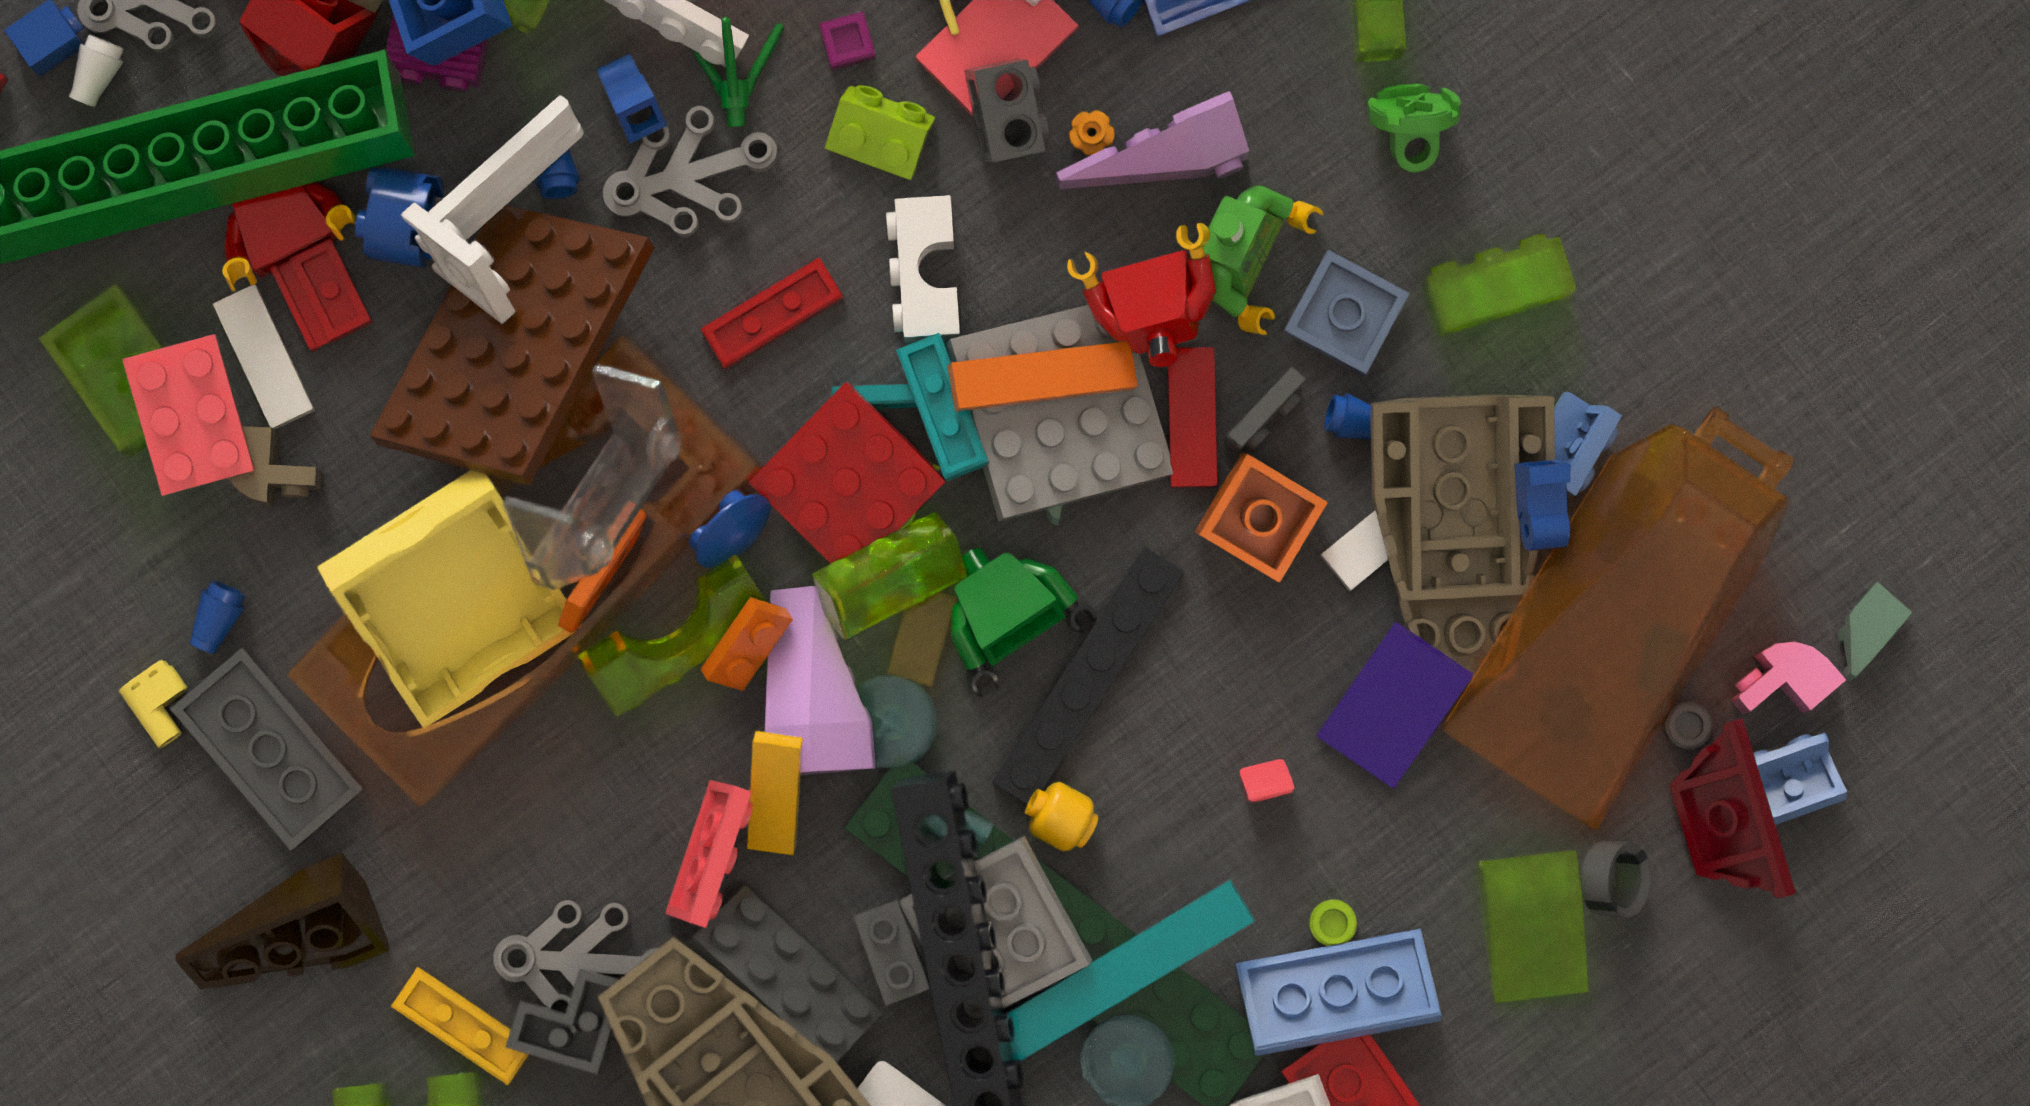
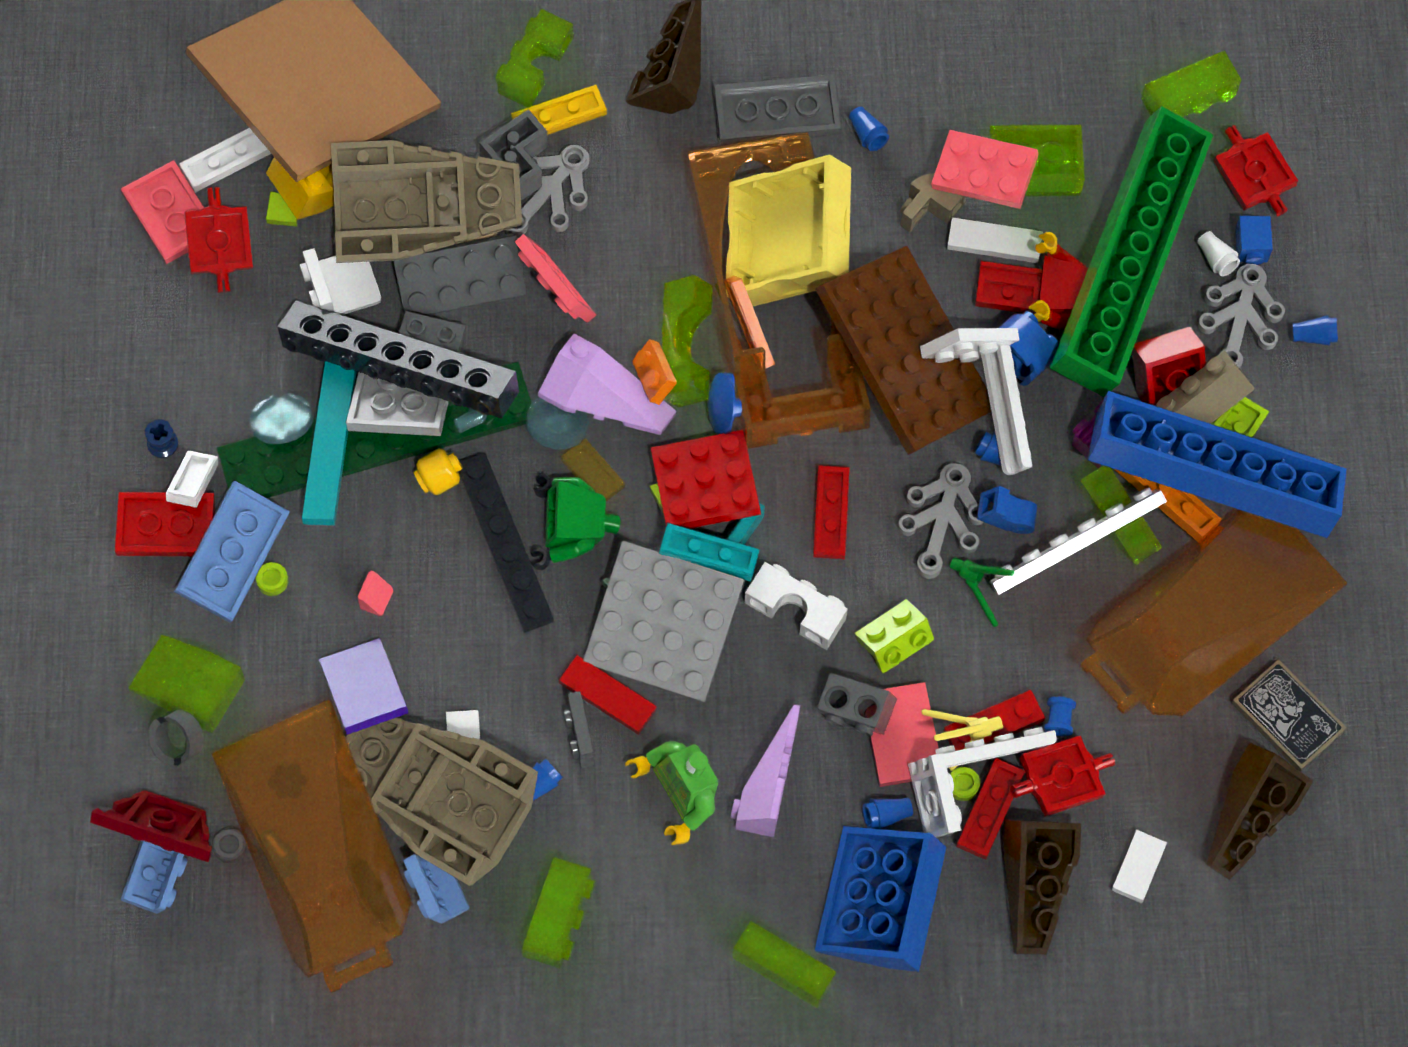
camera: 125 degrees right, 15 degrees down
(148, 697) = (849, 73): light yellow piece -> none
(582, 537) = (783, 335): clear windscreen -> none
(774, 792) = (562, 329): yellow tile -> none
(847, 40) = (961, 654): magenta tile -> none
(889, 575) = (636, 466): clear neon green brick -> none
(1042, 376) = (687, 614): orange tile -> none
(1091, 144) = (808, 757): light orange plate -> none
(1154, 299) = (686, 701): red torso -> none
(1261, 517) = (522, 685): orange brick -> none
(1346, 313) = (604, 817): sand blue plate -> none
(1414, 113) = (691, 930): bright green tile -> none
(1543, 503) = (412, 835): blue leg -> none
(1796, 669) = (212, 924): bright pink brick -> none
(1870, 627) = (205, 986): sand green slope -> none

